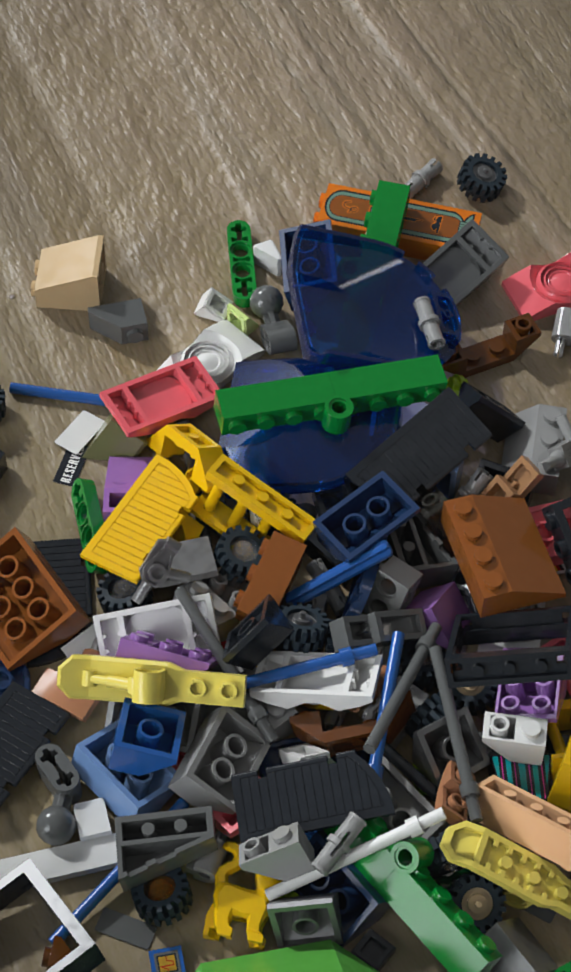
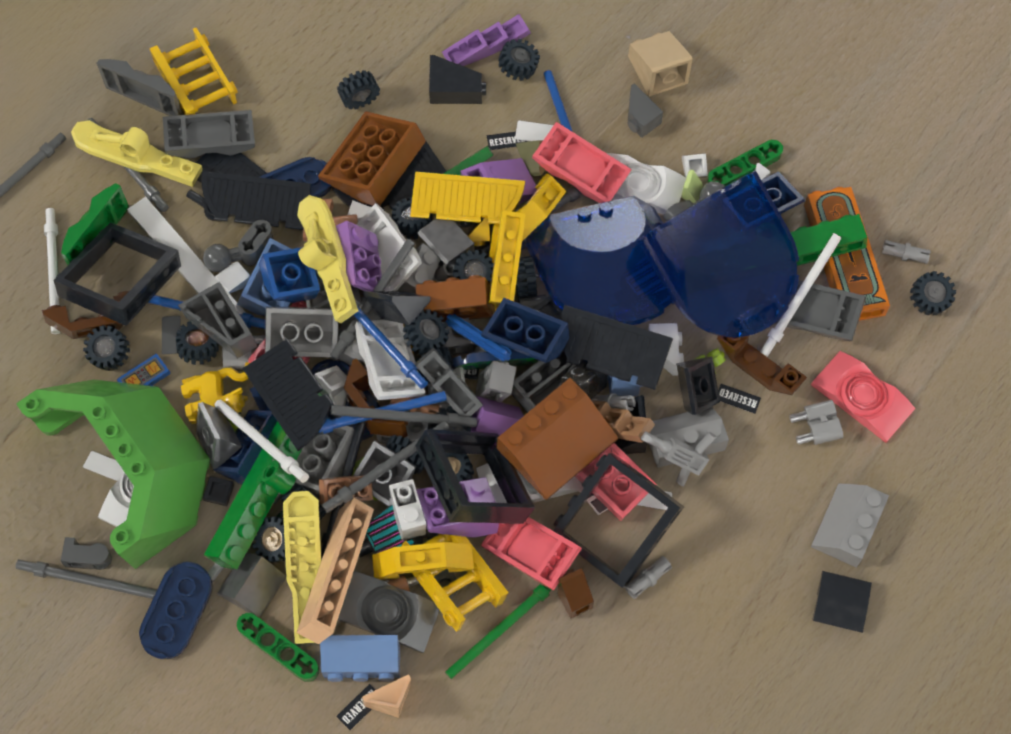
camera: 65 degrees right, 10 degrees up
(157, 568) = (422, 222): flat silver piece -> none
(278, 854) = (242, 394): light grey slope -> none
(329, 396) = (621, 263): green hinge -> none
(352, 826) = (272, 425): light grey pin -> none
(423, 257) = (776, 334): none -> white bar
(429, 323) = (740, 306): light grey pin -> none
(511, 389) = (738, 398): none -> black sticker

